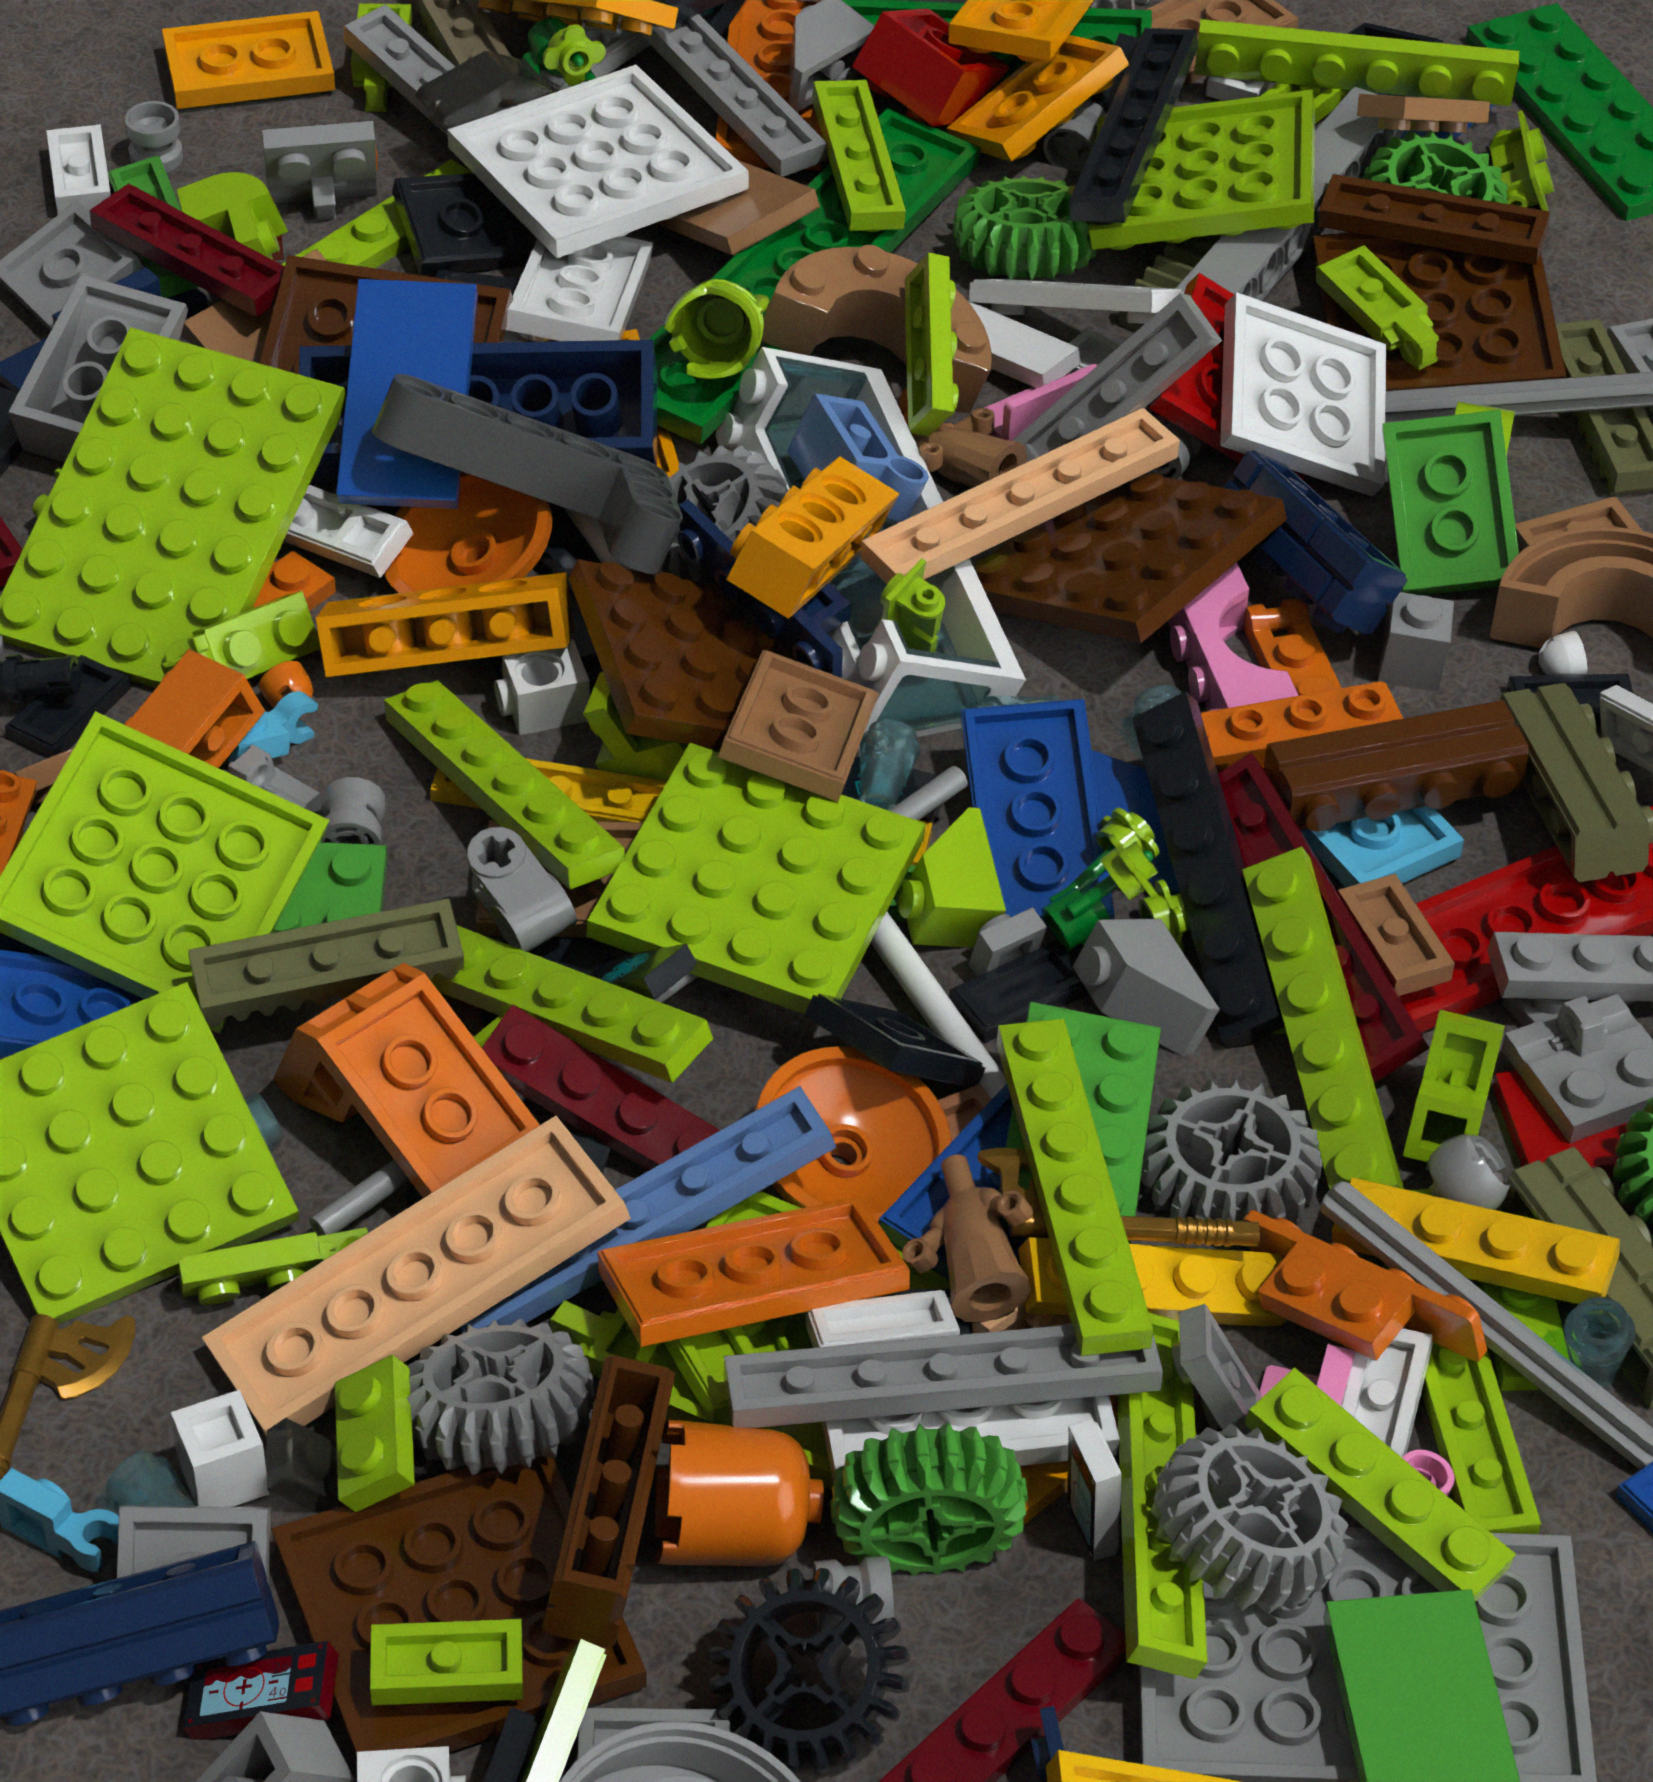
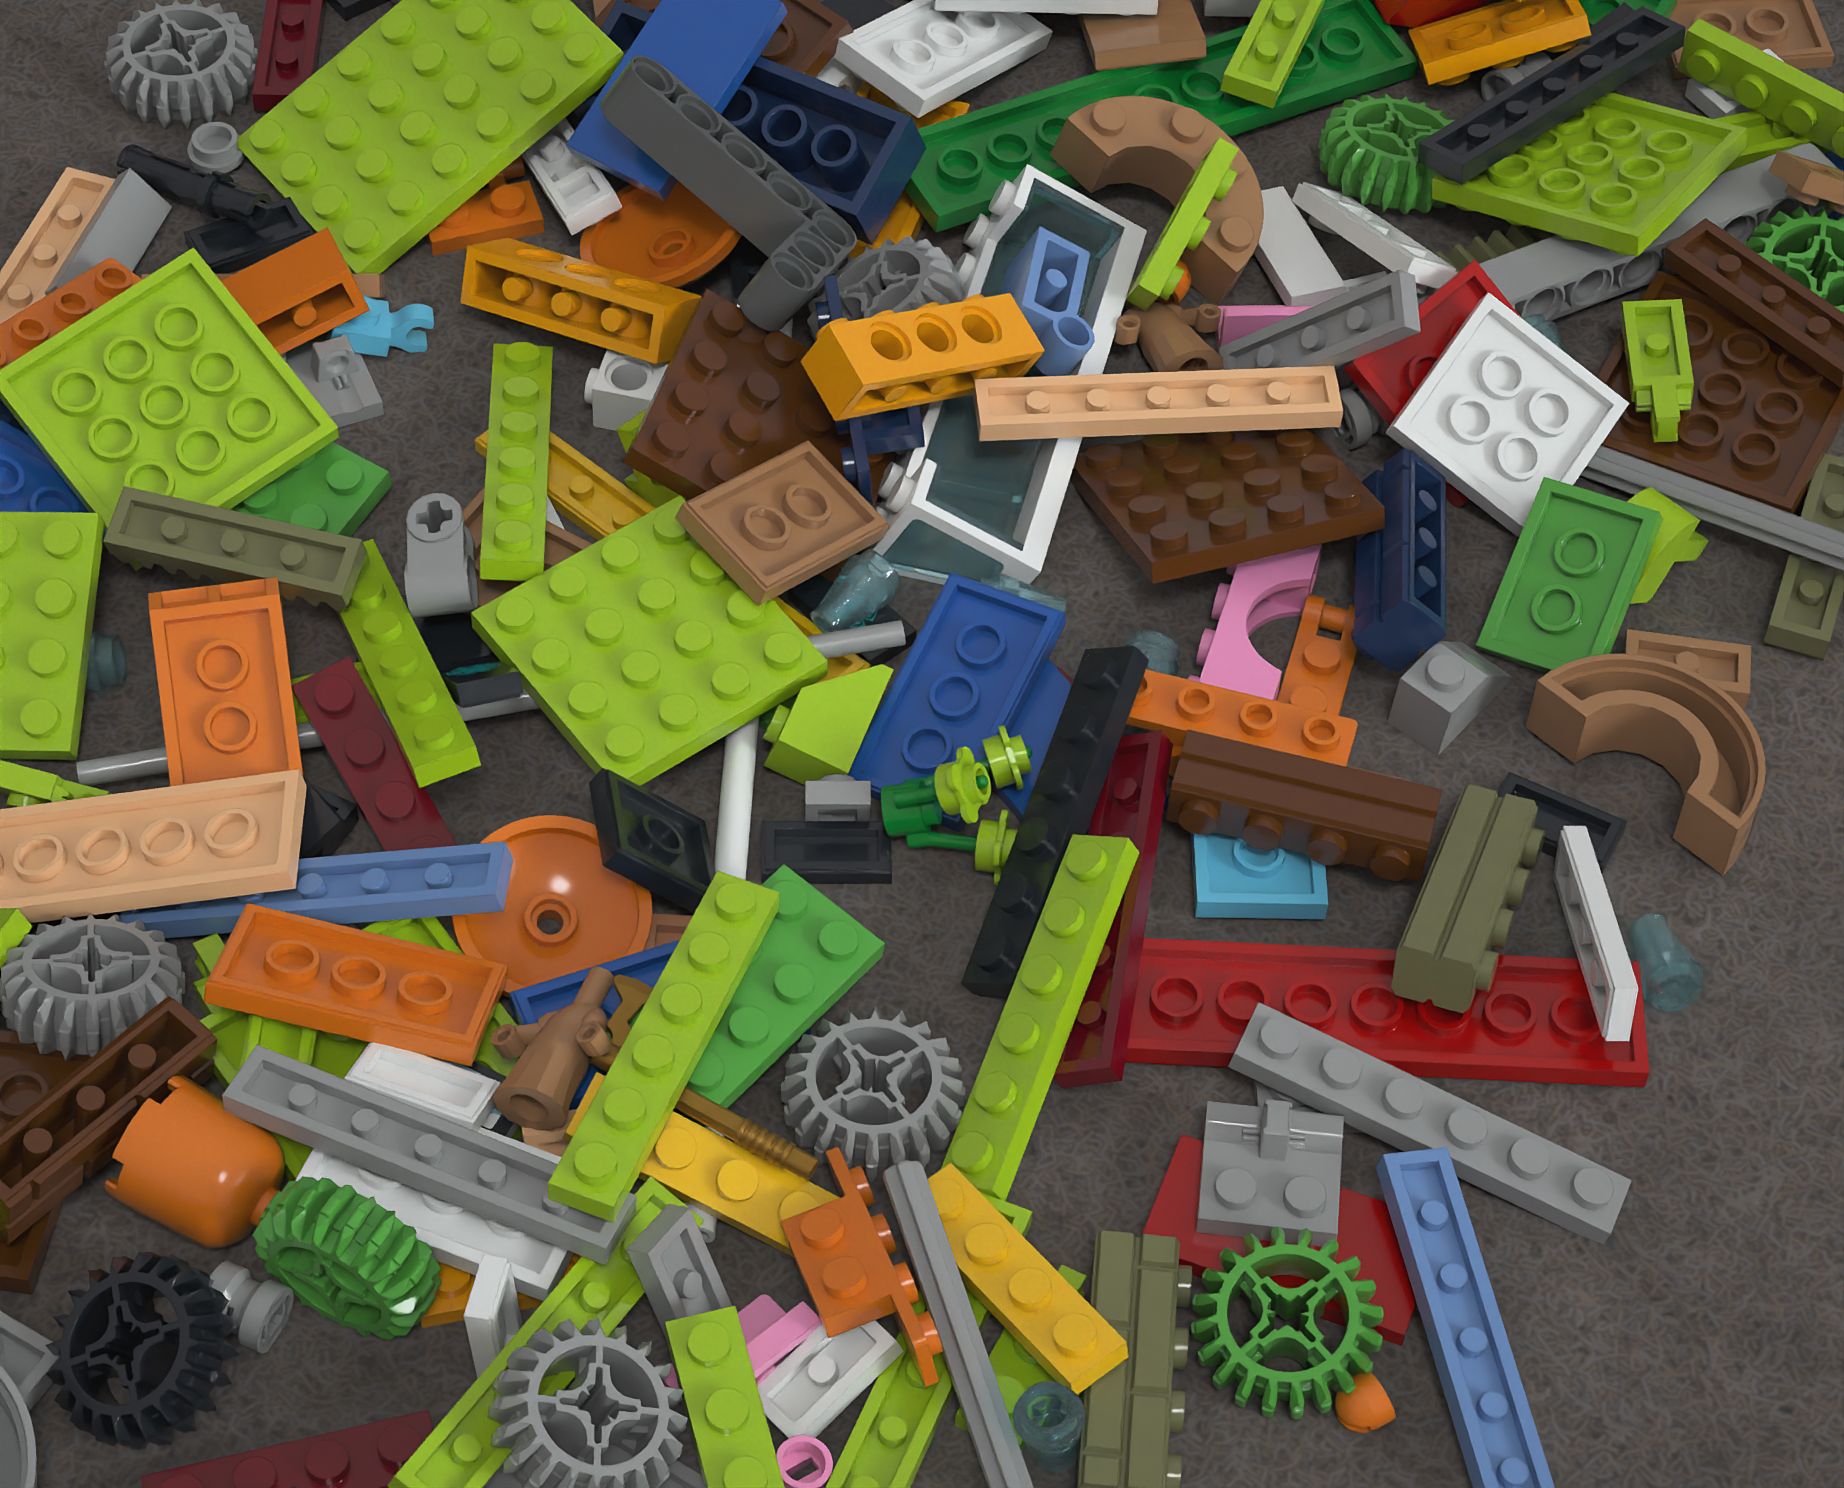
camera: 30 degrees right, 5 degrees up
(258, 637) = (413, 244): lime hinge -> none
(285, 679) = (432, 291): orange hinge -> none
(354, 811) = (388, 434): light grey wheel -> none
(717, 328) = (1003, 128): lime helmet -> none
(914, 607) = (967, 467): lime hinge -> none
(1145, 979) = (925, 894): light grey slope -> none
(1398, 934) = (1174, 961): medium nougat plate -> none
(1453, 1082) = (1117, 1138): lime brick -> none
(1468, 1172) = (1059, 1215): light grey piece -> none
(1563, 655) = (1576, 776): white hinge -> none

